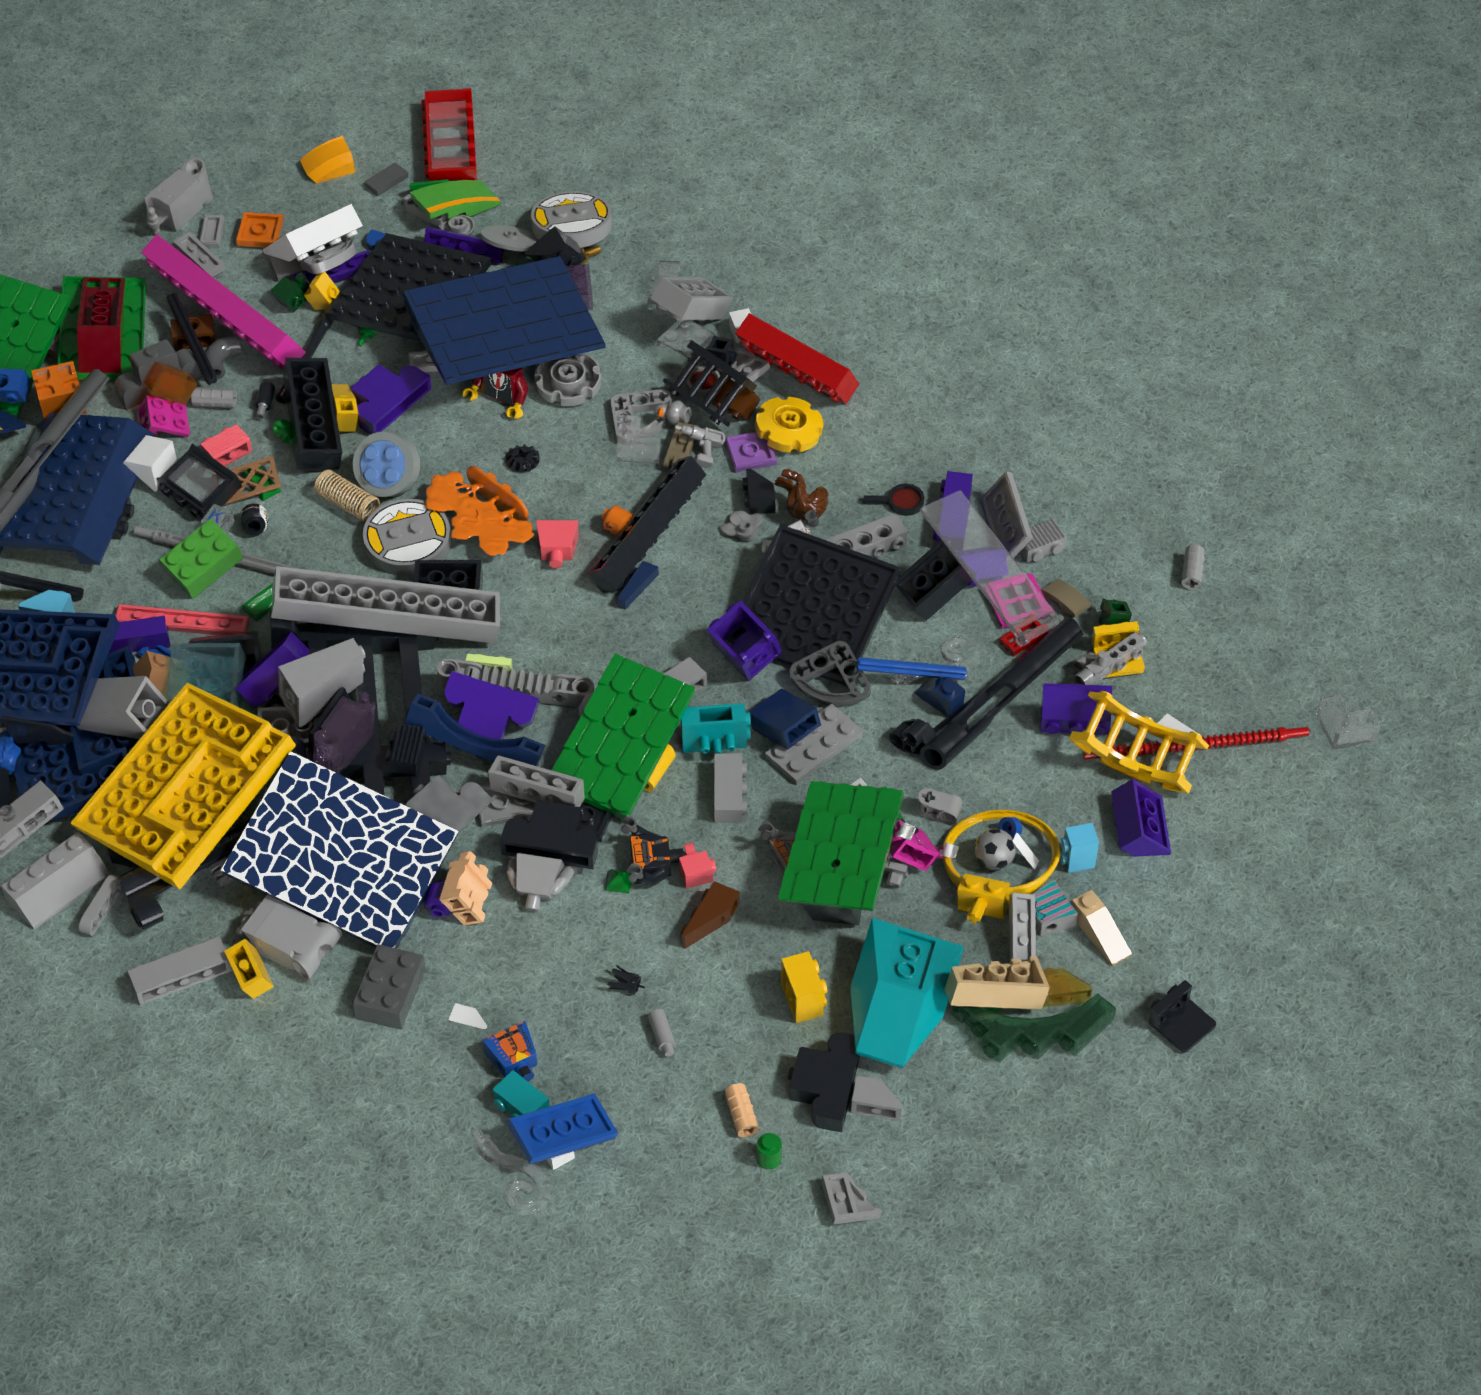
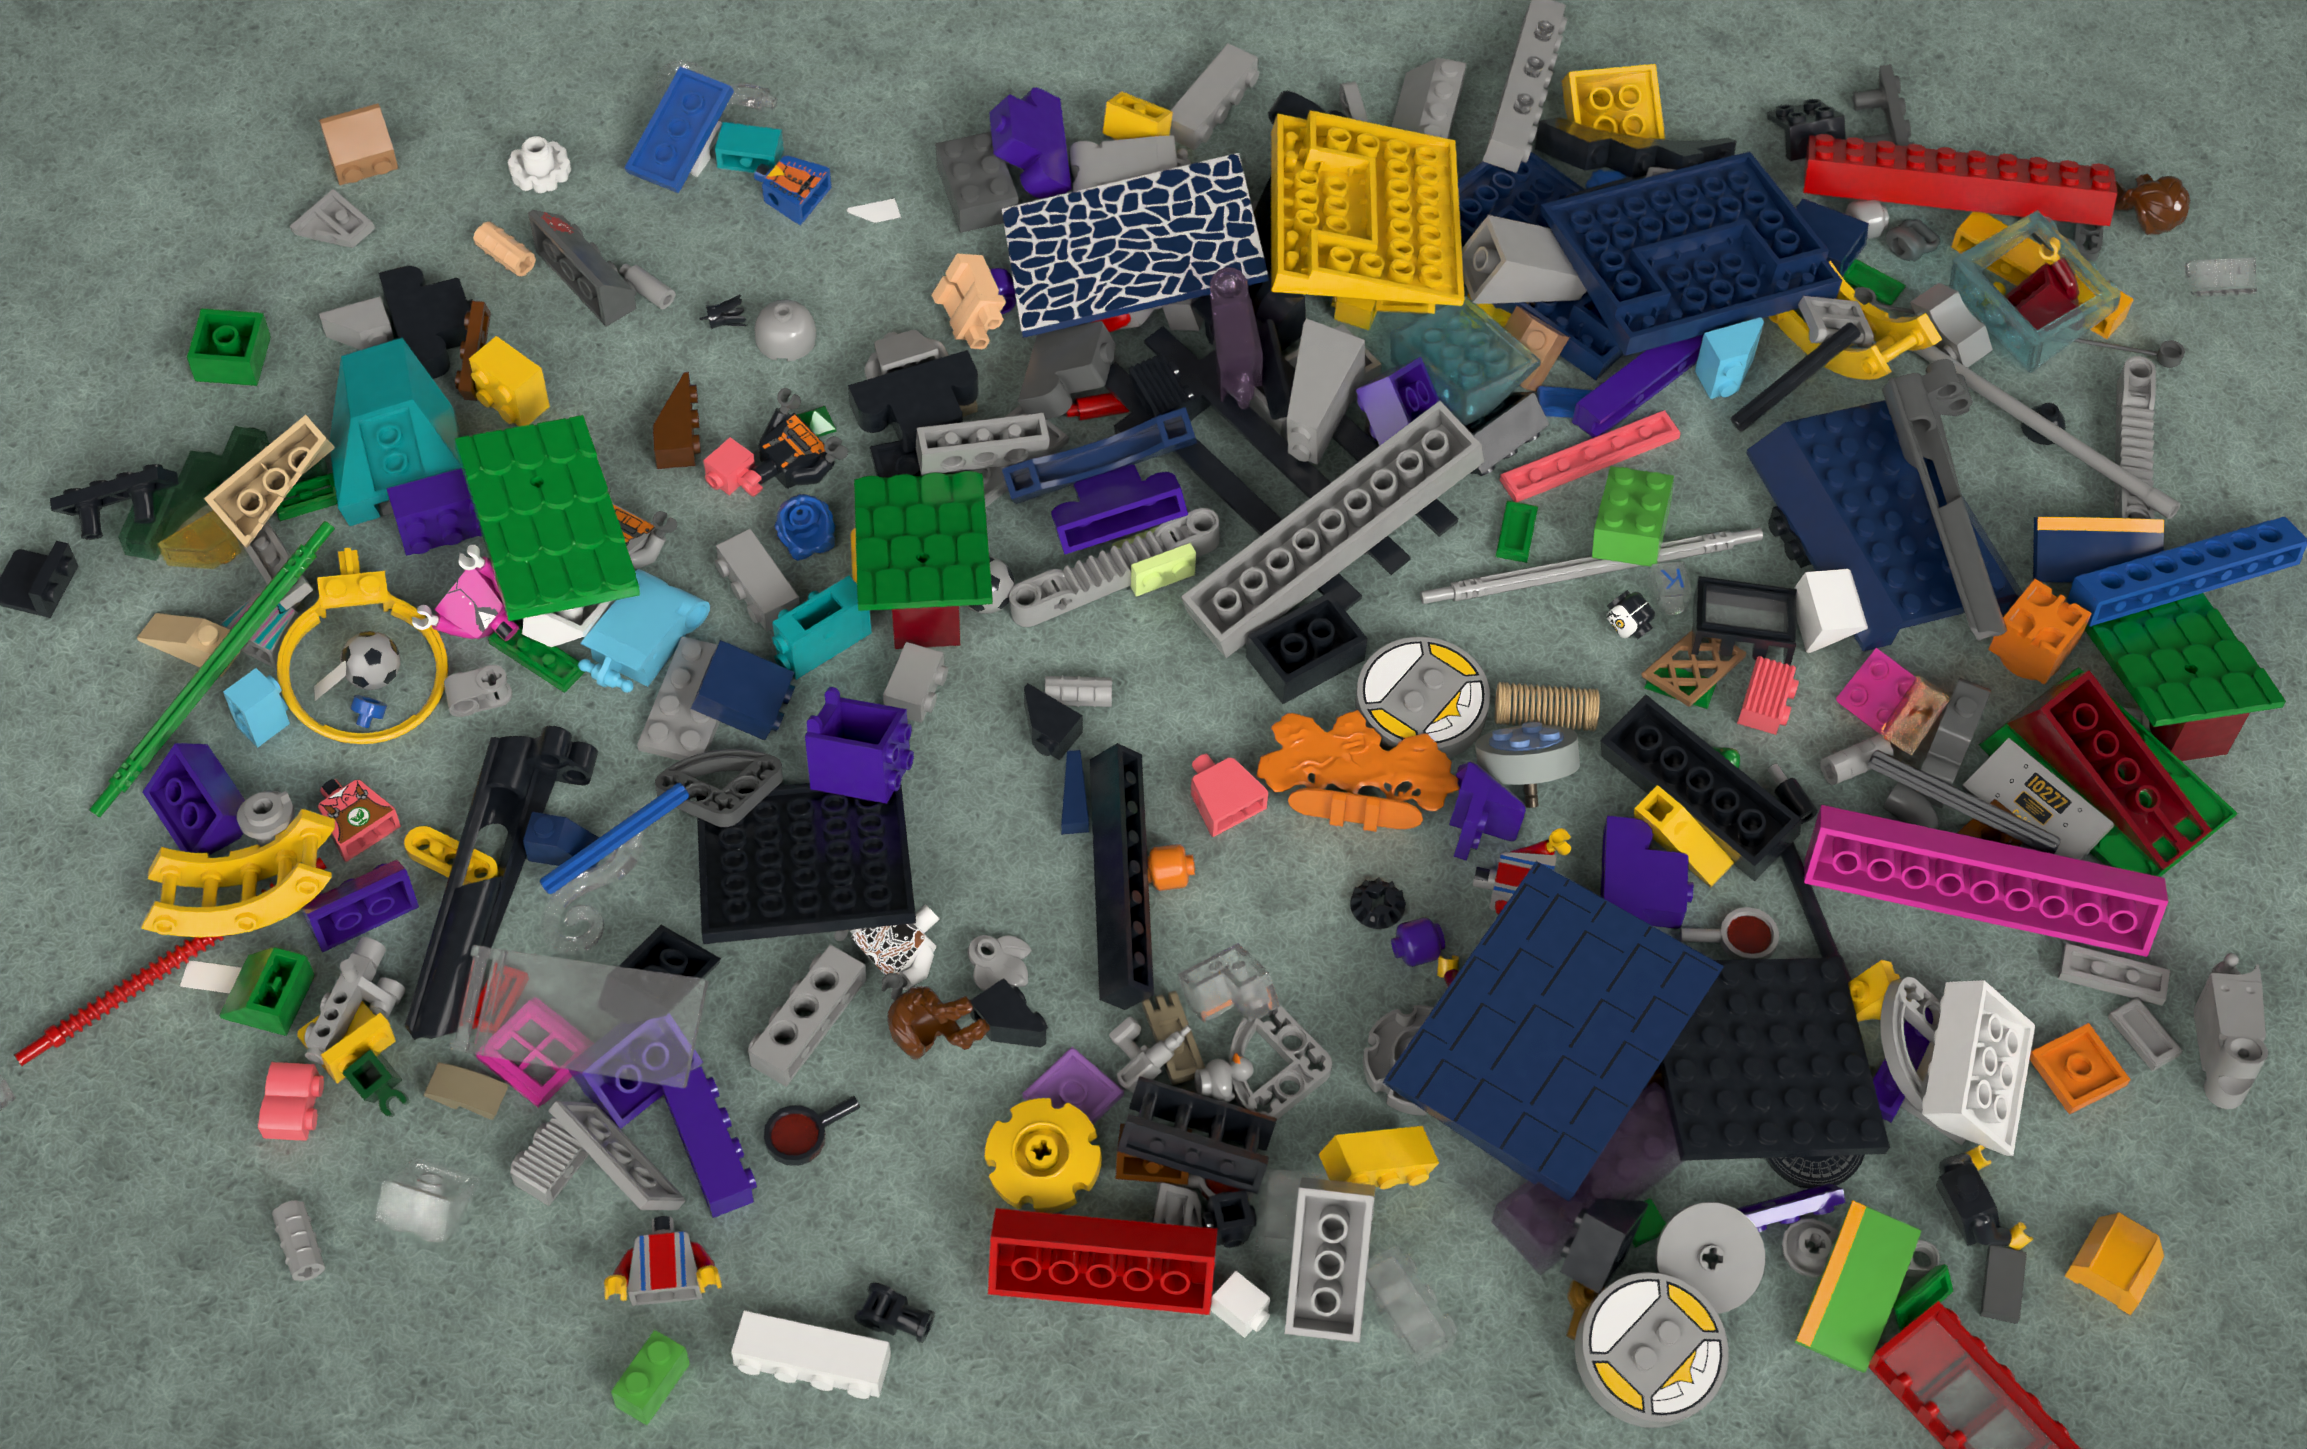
camera: 145 degrees right, 5 degrees up
(148, 323) = (2039, 798): none -> light grey tile
(291, 293) = (1925, 965): dark green brick -> none
(329, 989) = (1033, 138): none -> dark purple brick
(353, 356) = (1742, 935): none -> piece
(372, 200) = (1973, 1204): none -> black torso
(374, 238) = (1906, 1156): blue tile -> none
(438, 455) = (1484, 808): none -> dark purple piece
(443, 423) = (1516, 864): none -> torso
(520, 425) = (1418, 942): none -> dark purple head
(591, 633) = (1080, 690): none -> light grey axle
(595, 949) = (785, 330): none -> light grey cylinder
(622, 622) = (1051, 723): none -> black slope
(631, 337) = (1380, 1157): none -> yellow brick
(675, 1169) = (539, 165): none -> white plant
(677, 805) = (806, 530): none -> blue hair
(697, 1057) = (582, 267): none -> dark grey slope
(769, 1151) = (446, 220): green brick -> none
(797, 1245) = (358, 144): none -> slope
(811, 1025) = (477, 328): none -> reddish brown plate
(831, 768) = (641, 633): none -> medium azure piece
(899, 910) = (434, 512): none -> dark purple brick
(910, 400) = (890, 1312): none -> black connector
(962, 400) = (810, 1355): none -> white brick
(975, 1120) = (229, 347): none -> green brick
(1018, 725) = (441, 850): none -> yellow plate
(1021, 464) = (663, 1268): none -> torso
(1046, 425) = (650, 1377): none -> bright green brick
(1051, 766) = (359, 816): none -> torso
(1093, 881) = (211, 669): none -> green axle
(1102, 1030) = (102, 493): none -> black plate
(1107, 765) = (265, 815): none -> light grey piece
(1114, 554) = (425, 1199): none -> clear slope
(1151, 691) = (269, 990): none -> green slope
(1165, 634) = (289, 1101): none -> coral brick

